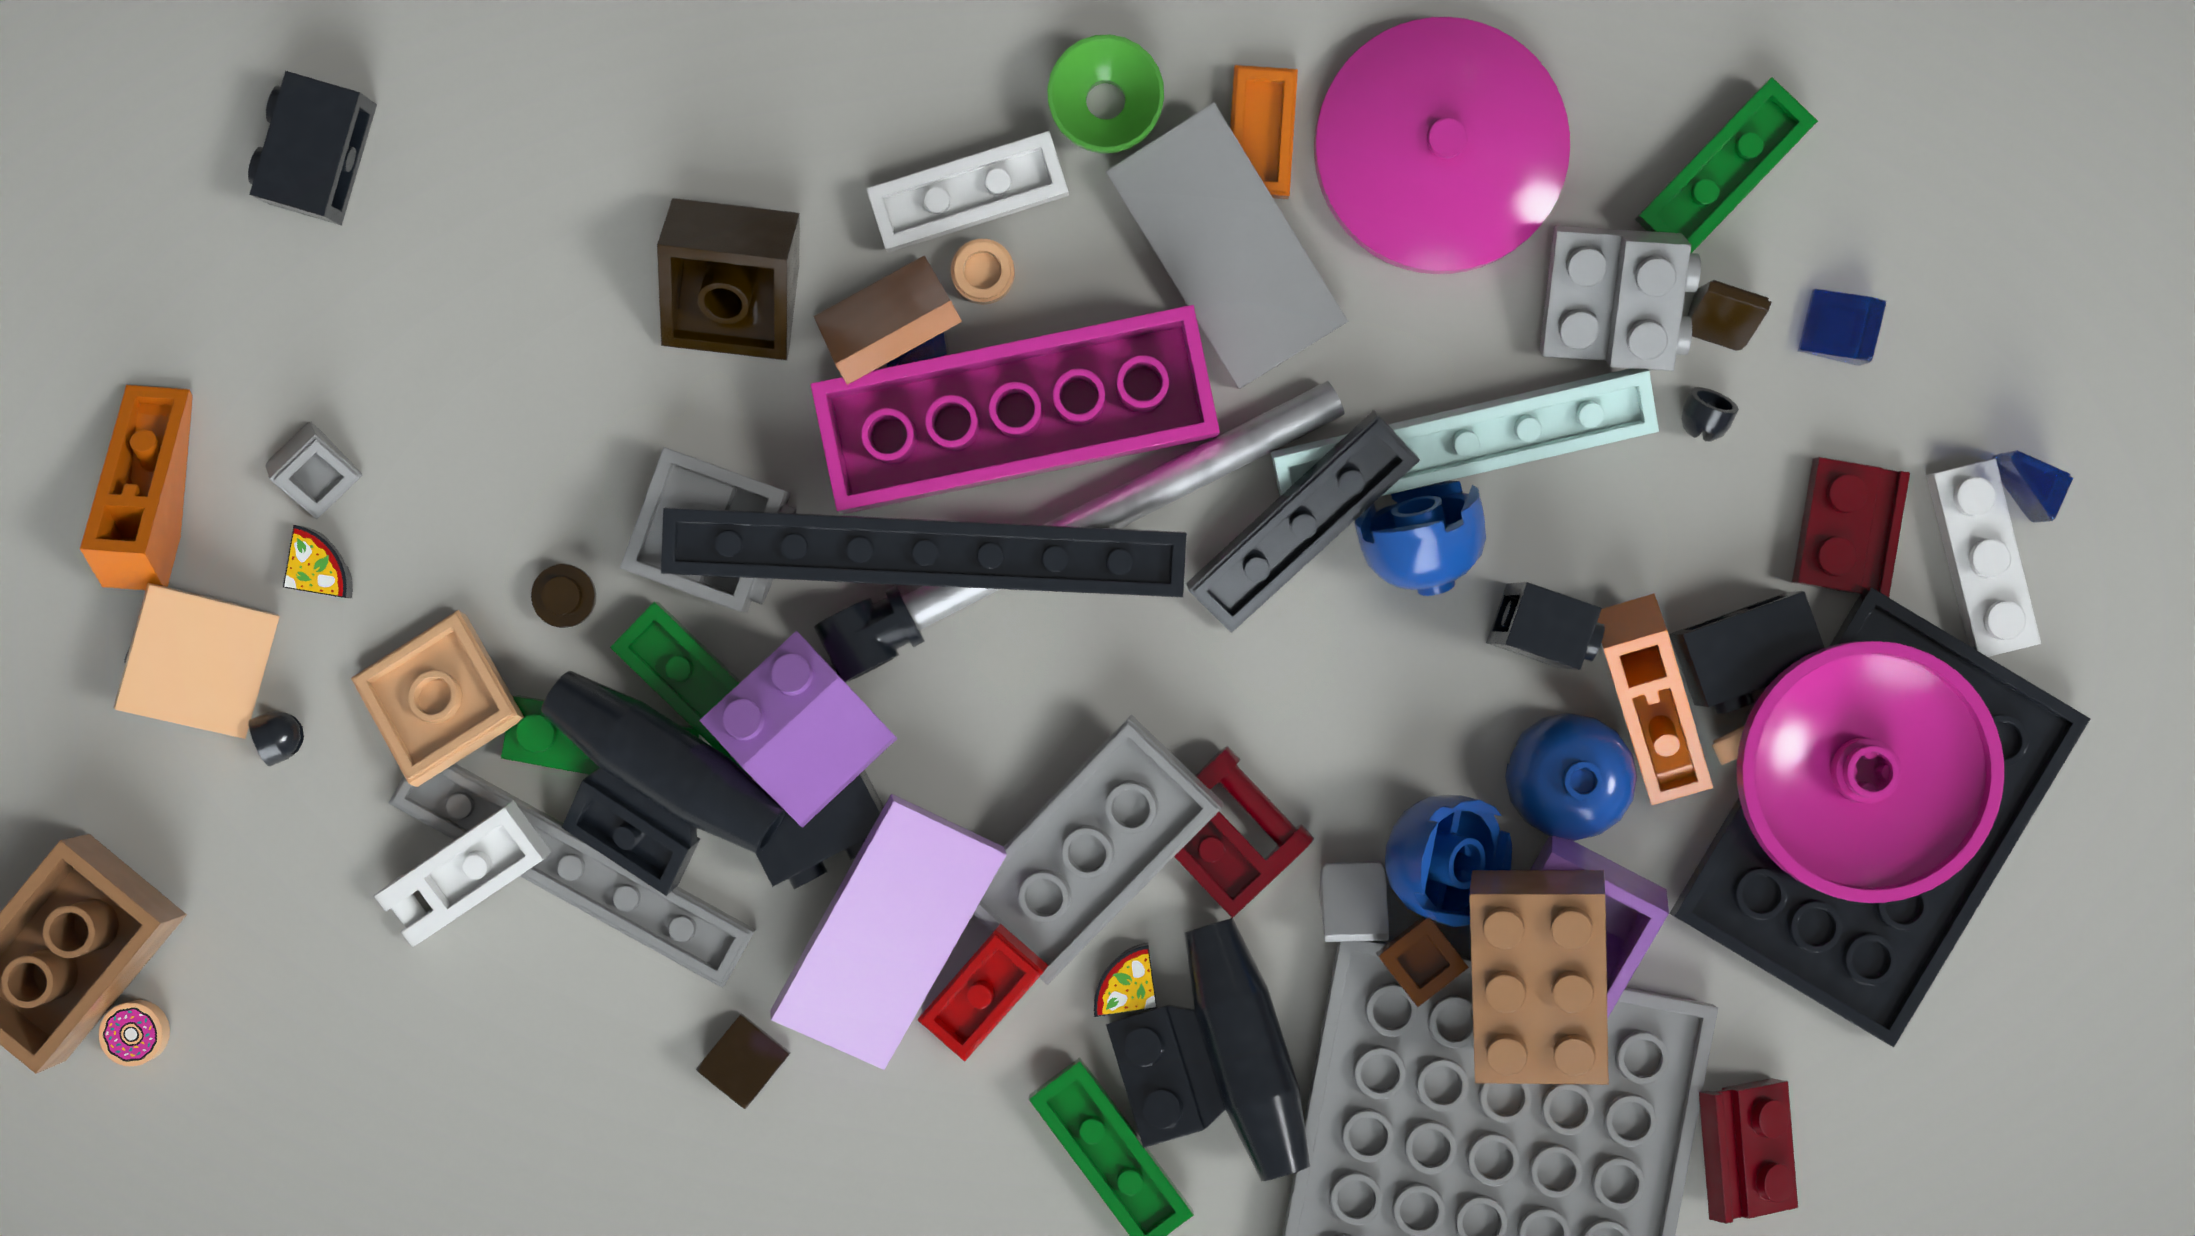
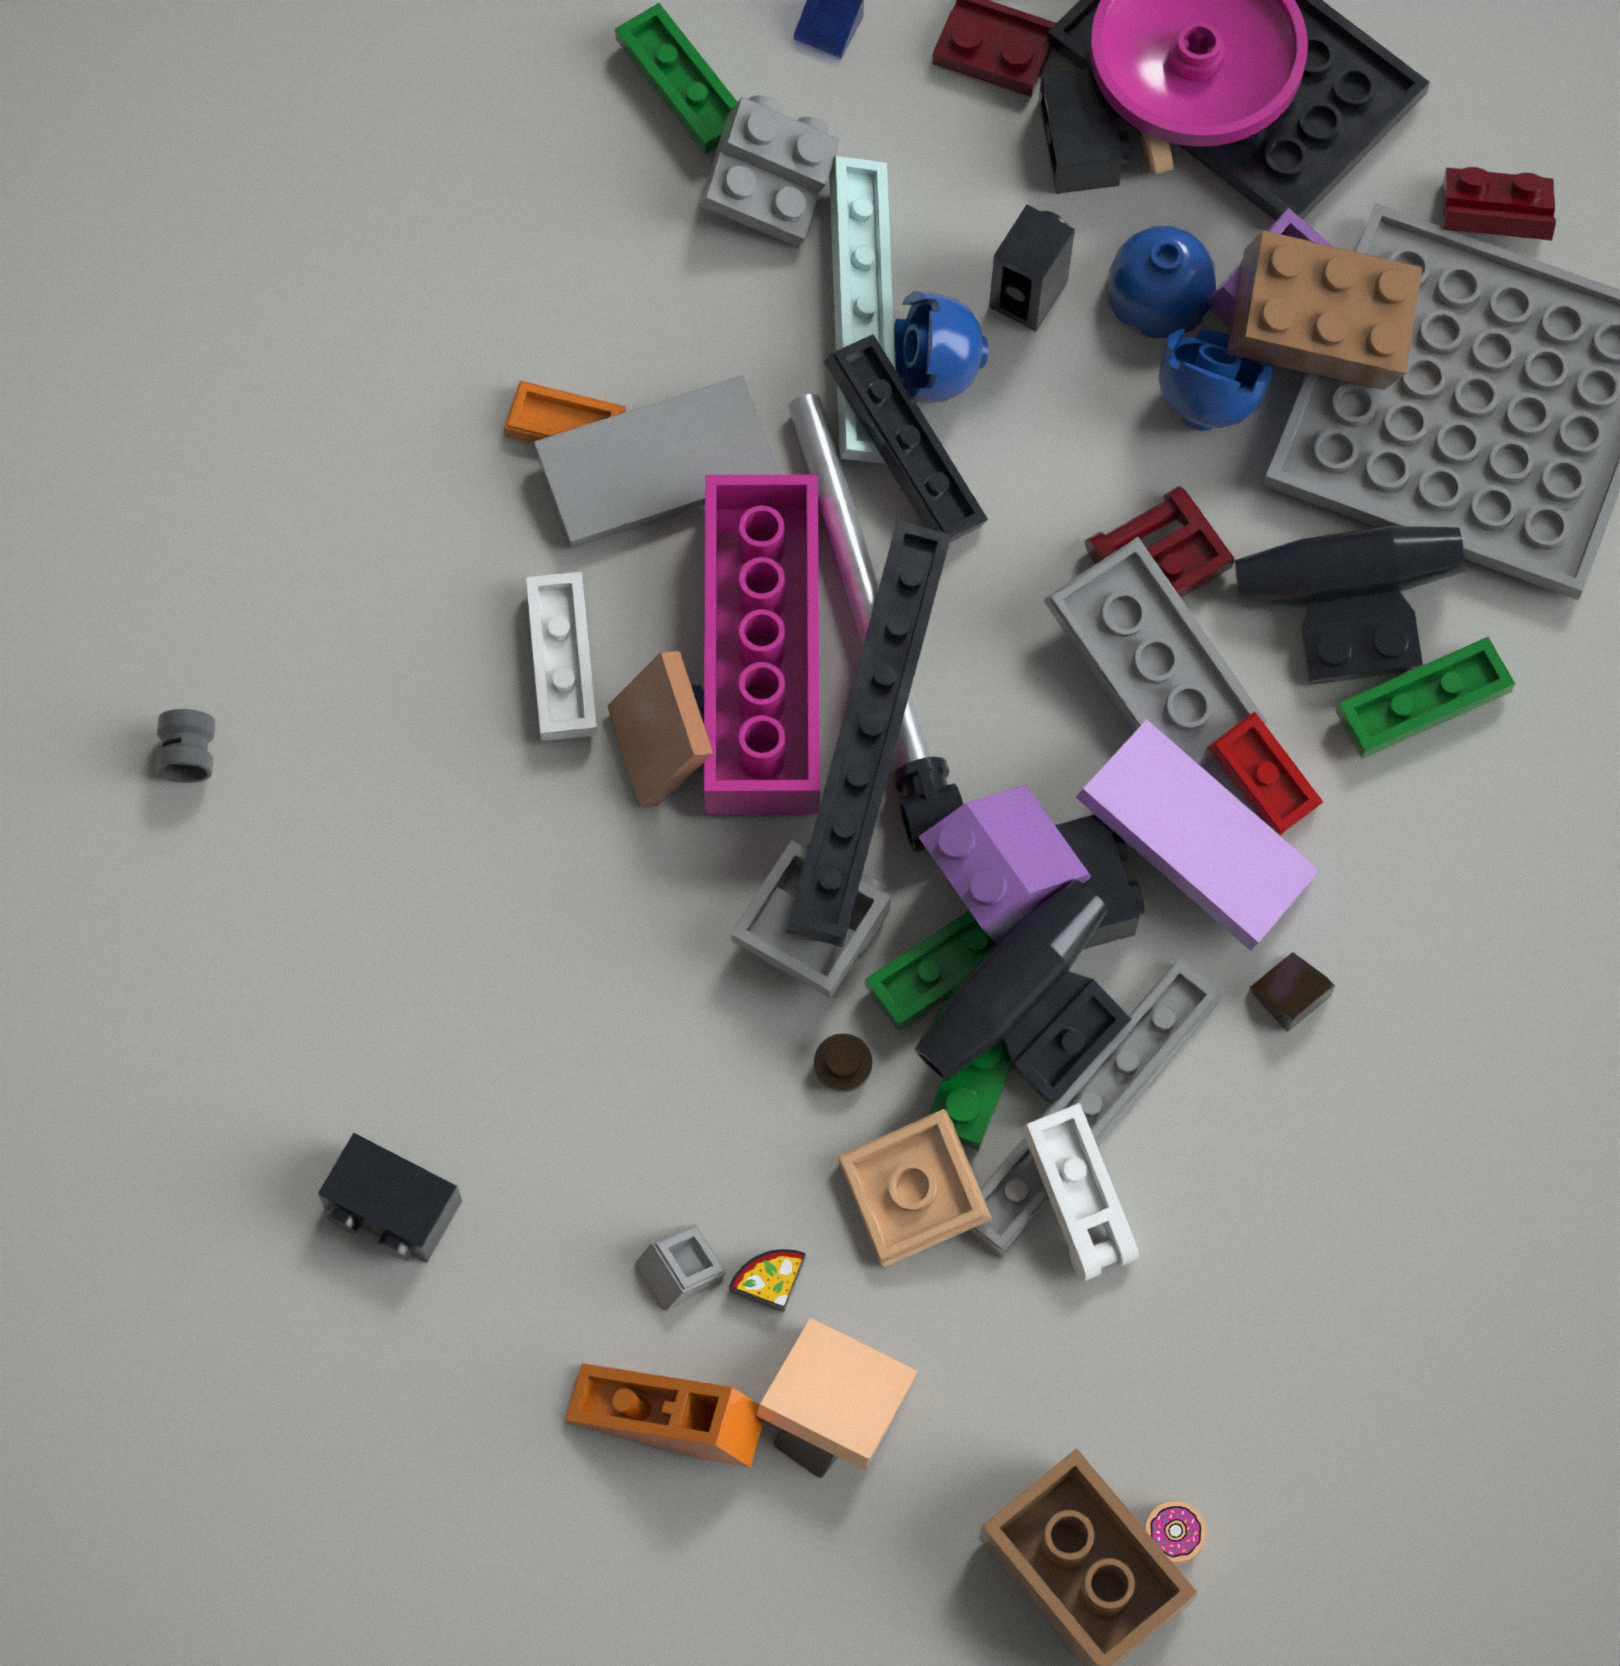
camera: 75 degrees left, 20 degrees down
(276, 736) = (920, 1341): black hinge -> none
(728, 278) = (592, 862): dark brown slope -> none
(982, 271) = (628, 657): light nougat tile -> none
(1114, 62) = (504, 503): bright green piece -> none
(1126, 984) = (1277, 660): tile -> none
(1354, 901) = (1237, 462): light grey slope -> none
(1422, 960) = (1296, 409): reddish brown plate -> none
(1441, 145) = (610, 286): dark pink dish -> none
(1653, 700) = (1112, 203): orange slope -> none
(1708, 414) = (880, 127): black hinge -> none
(1726, 314) = (801, 92): dark brown slope -> none

